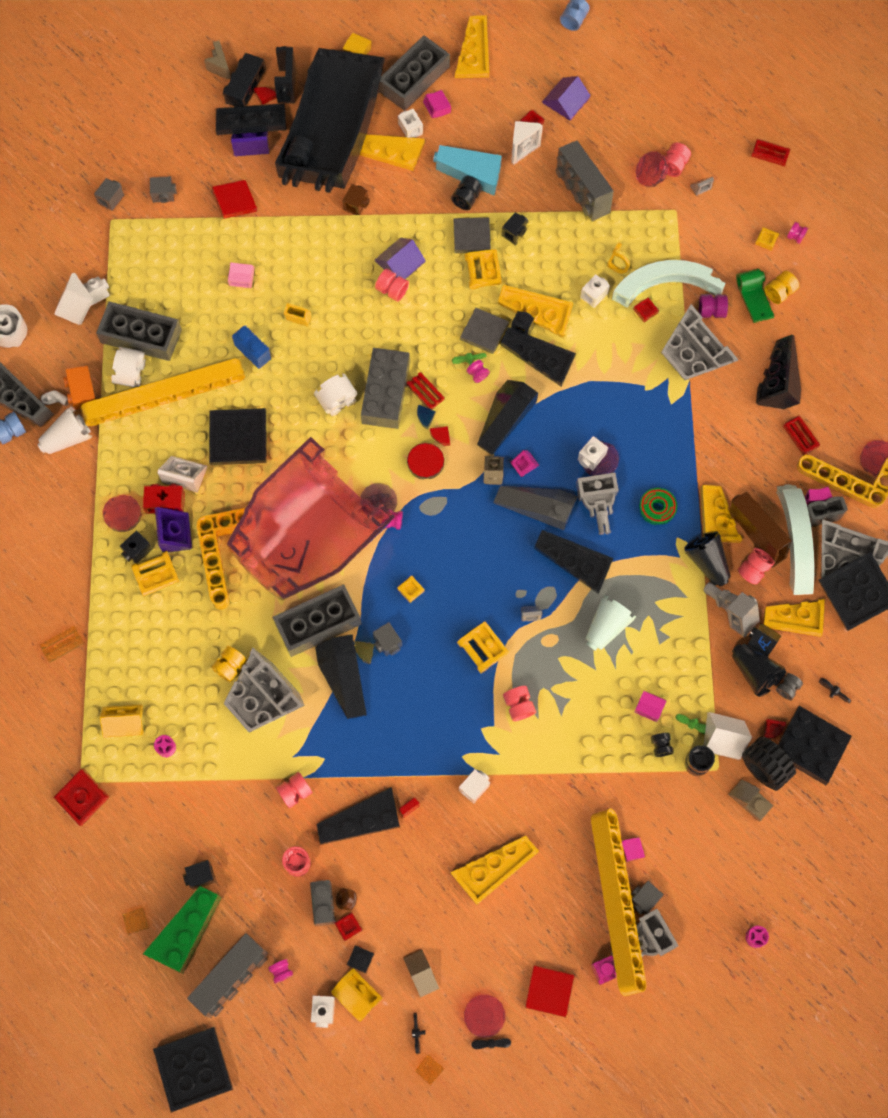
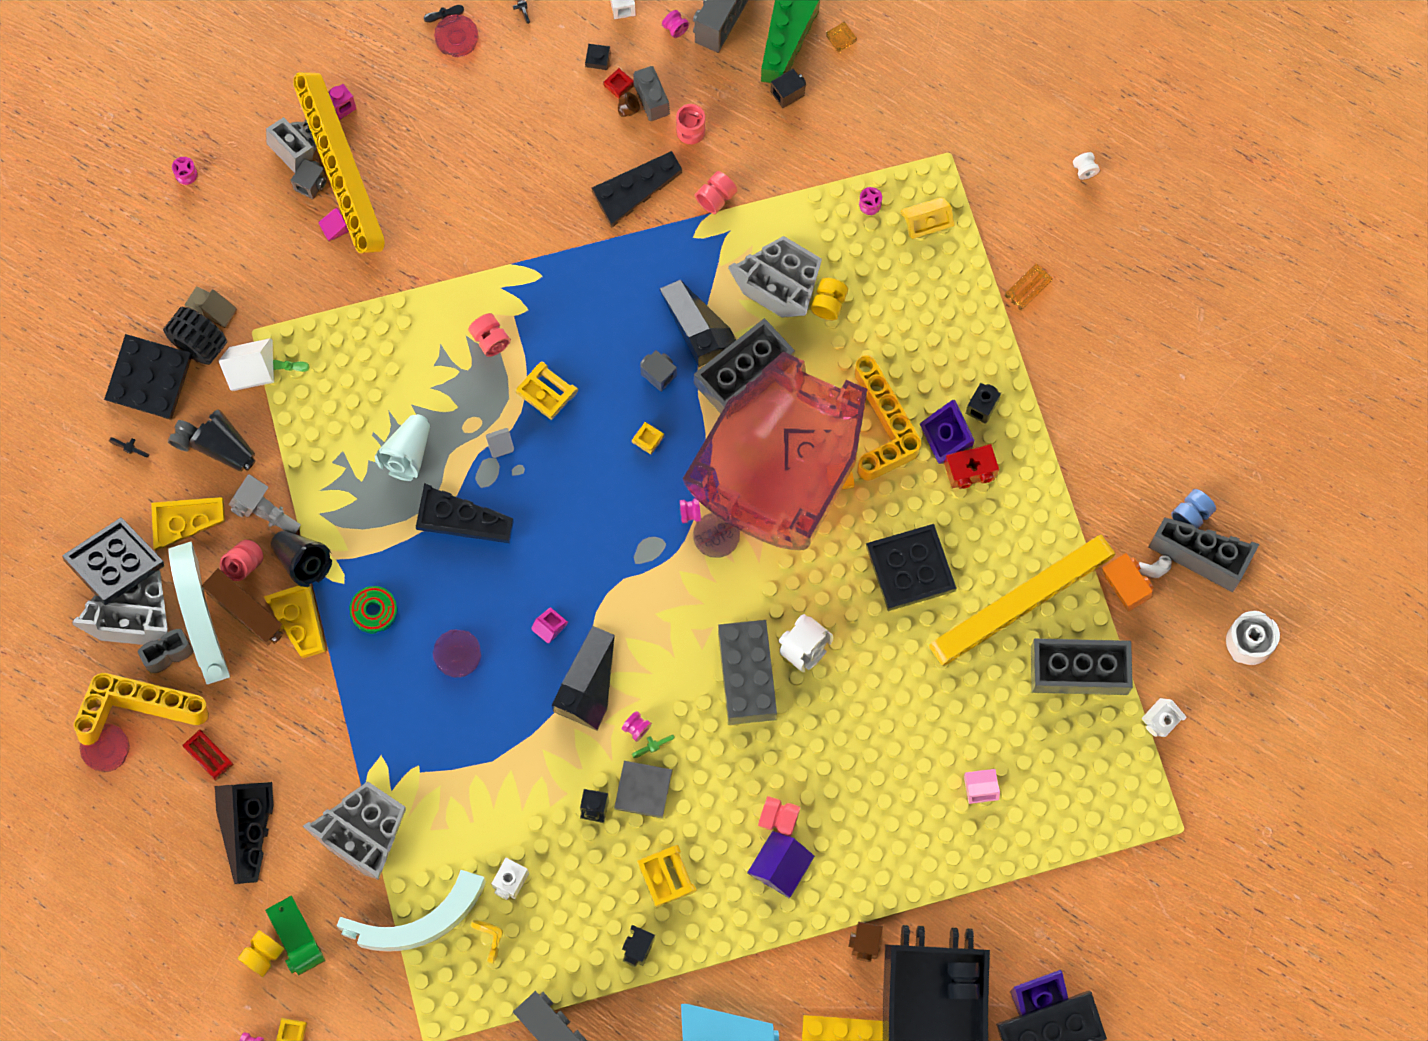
camera: 165 degrees right, 0 degrees up
(64, 432) = (1121, 521): white cone -> none
(74, 301) = (1183, 690): white slope -> none
(81, 797) = (942, 135): red tile -> none
(109, 194) = (1198, 860): dark grey brick -> none
(122, 513) = (1016, 443): clear pink tile -> none
(128, 366) = (1076, 614): white brick -> none
(157, 578) = (946, 375): yellow plate -> none
(162, 189) = (1131, 888): dark grey brick -> none
(182, 472) = (961, 504): white slope -> none
(234, 199) = (1031, 900): red tile -> none
(251, 346) = (932, 684): blue brick -> none
(298, 311) = (889, 744): yellow piece -> none
(356, 995) = (591, 23): yellow panel -> none
(364, 651) = (681, 355): clear yellow tile -> none
(409, 807) = (585, 207): red tile -> none
(410, 384) = (680, 675): red tile -> none
(421, 973) = (532, 58): dark tan slope -> none
(425, 416) = (688, 654): tile -> none
(425, 461) = (672, 596): red tile -> none
(441, 435) = (662, 633): red tile -> none
(466, 193) = (718, 988): black wheel -> none
(471, 234) = (694, 925): flat silver tile -> none
(474, 785) = (519, 242): white brick -> none
(490, 871) = (479, 169): yellow wing -> none
(493, 470) = (585, 601): dark tan slope -> none
(541, 504) = (513, 575): dark grey wedge -> none
(543, 356) = (554, 769): black wing -> none
(548, 311) = (574, 836): yellow wing -> none
(549, 991) = (394, 72): red tile -> none
(592, 453) = (466, 645): white brick -> none
(598, 494) = (449, 600): light grey brick -> none
(646, 309) = (437, 874): red tile -> none
(650, 706) = (340, 372): dark pink piece -> none
(662, 744) = (319, 332): black wheel -> none
(699, 760) = (274, 321): black wheel -> none
(713, 306) = (349, 901): magenta wheel -> none
(763, 639) = (219, 479): black brick -> none
(773, 728) = (195, 389): red tile -> none
(817, 495) = (177, 668): dark pink piece -> none

